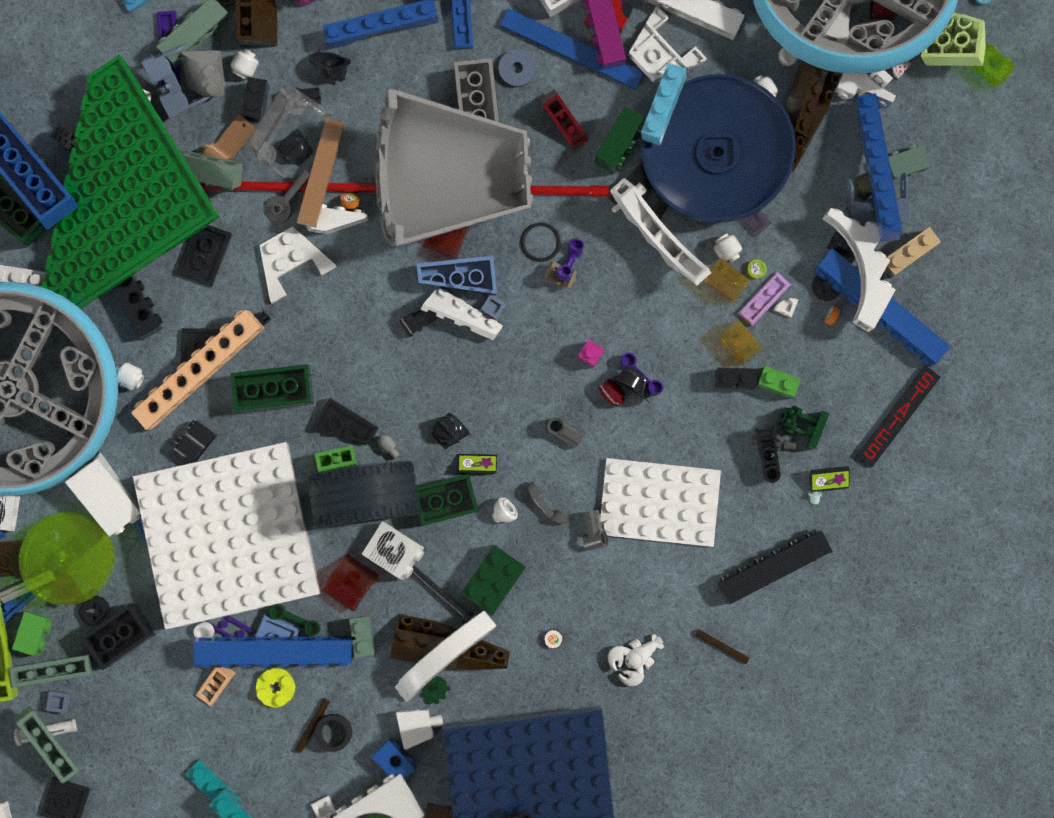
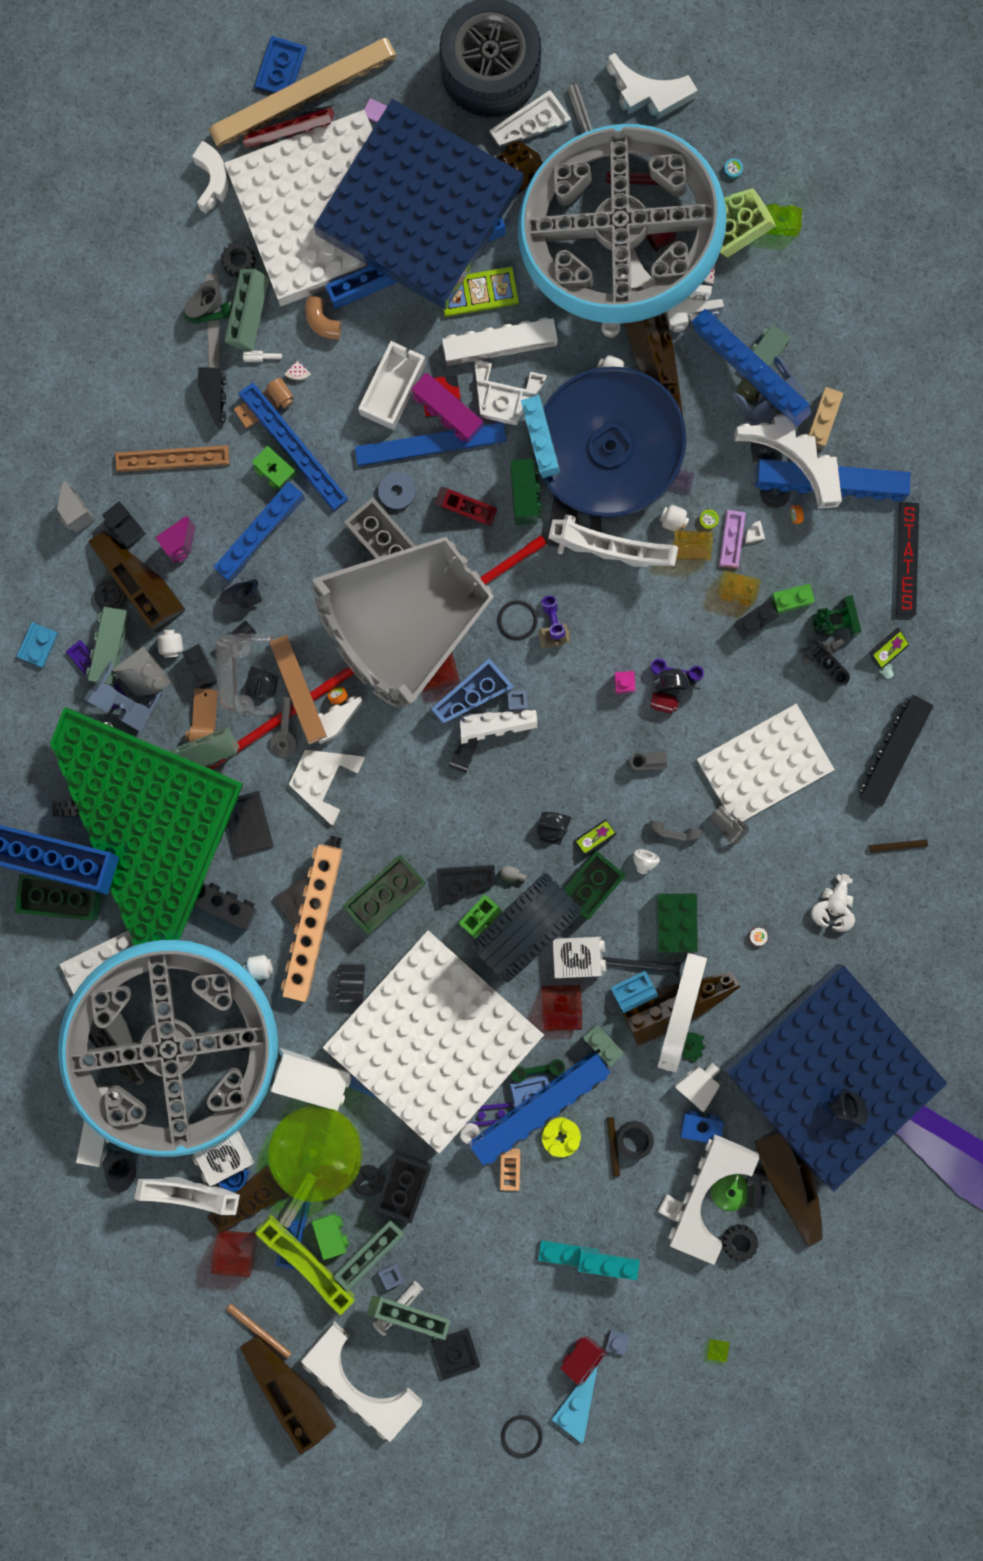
camera: 30 degrees left, 0 degrees up
(418, 611) = (634, 991): none -> dark azure plate

